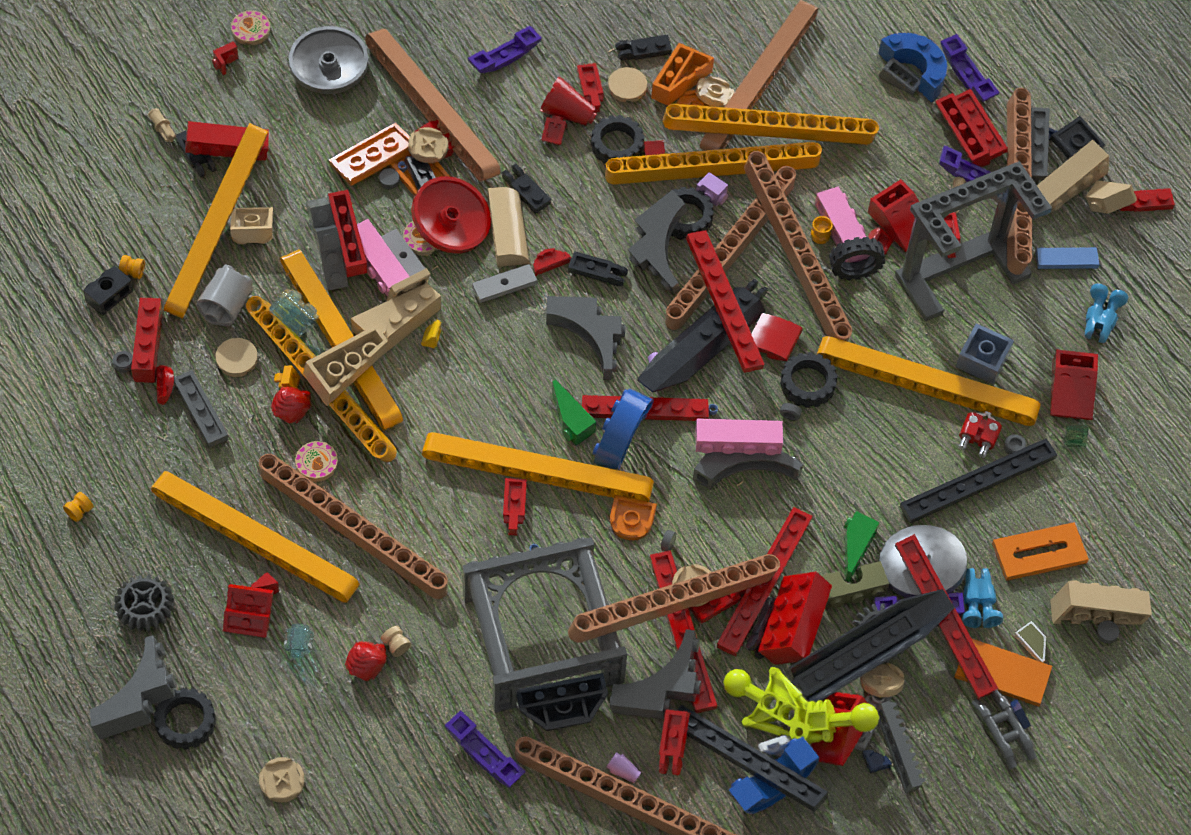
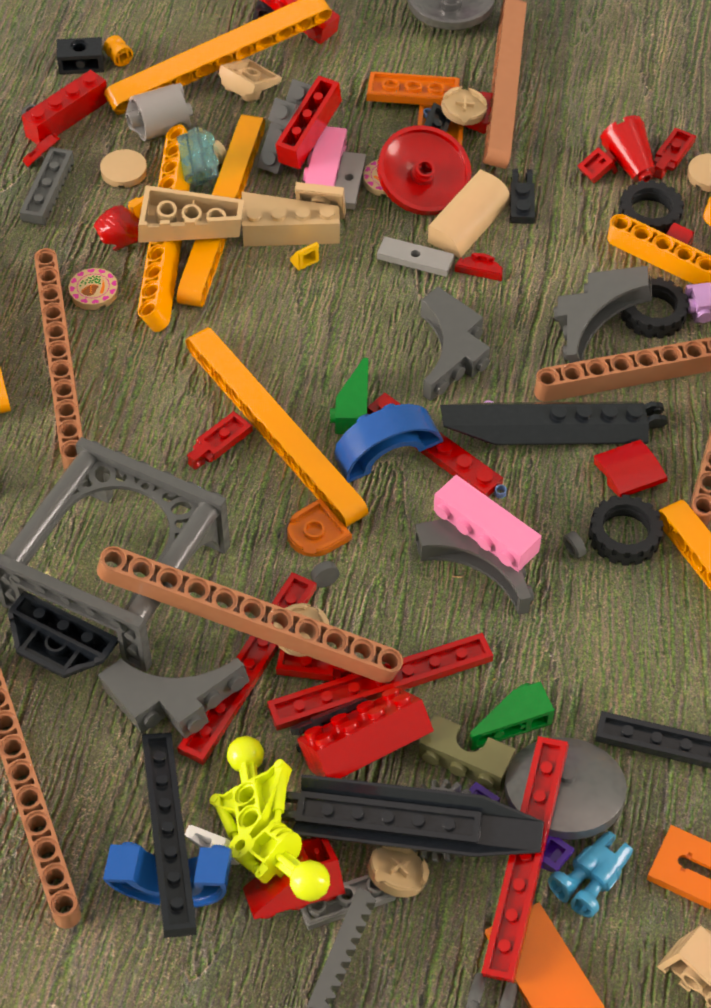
camera: 45 degrees right, 5 degrees down
(389, 178) = (407, 116): dark grey tile -> none
(507, 53) = (617, 84): dark purple slope -> none
(597, 268) = (515, 298): black hinge -> none
(623, 768) = (52, 746): lavender cone -> none
(673, 740) = (119, 759): red hinge -> none
(725, 301) = (603, 400): red plate -> none
(876, 761) = (308, 950): dark blue tile -> none
(1032, 640) = (612, 965): olive tile -> none

